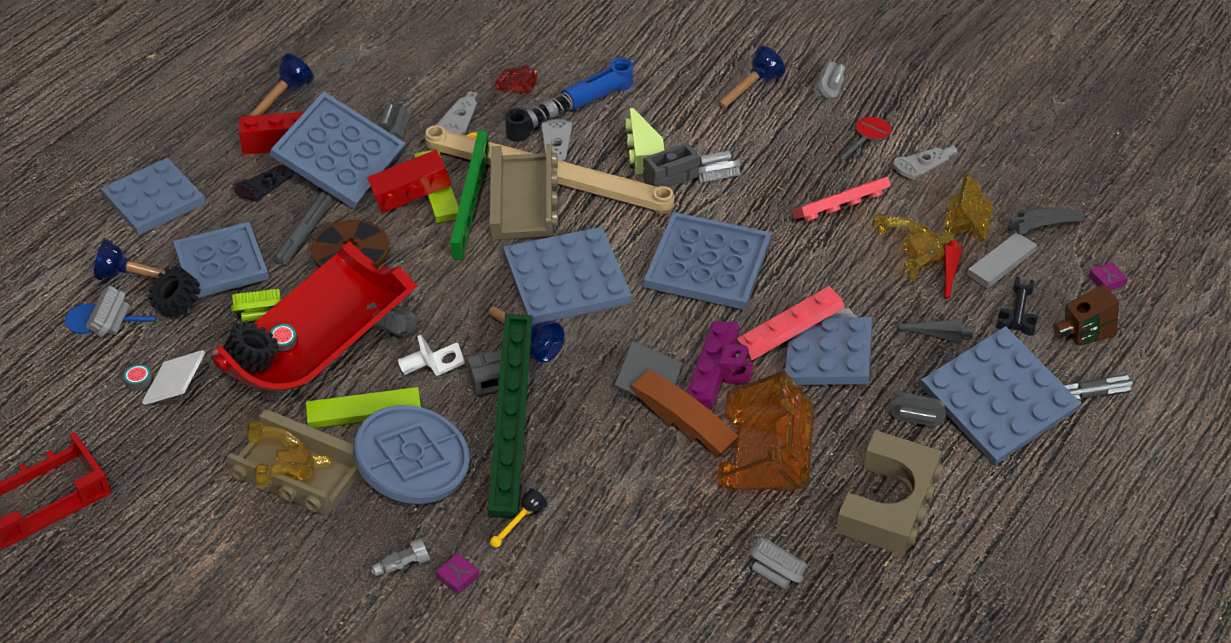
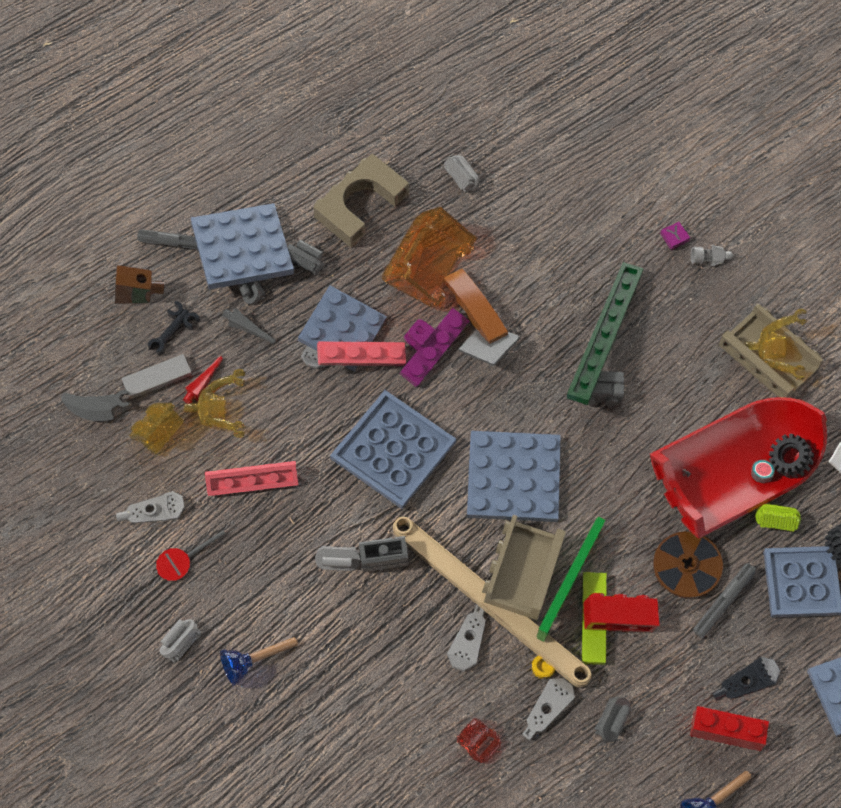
camera: 160 degrees left, 20 degrees up
(337, 149) = (678, 671): sand blue plate -> none
(357, 407) = (709, 391): lime tile -> none
(411, 454) = (686, 327): sand blue plate -> none
(434, 360) = (648, 417): white bracket -> none
(532, 504) = (609, 269): hinge -> none
(545, 339) = (557, 403): clear blue piece -> none
(616, 77) = (434, 688): piece -> none
(642, 140) = (392, 593): yellowish green slope -> none
(1108, 275) = (86, 333): magenta tile -> none

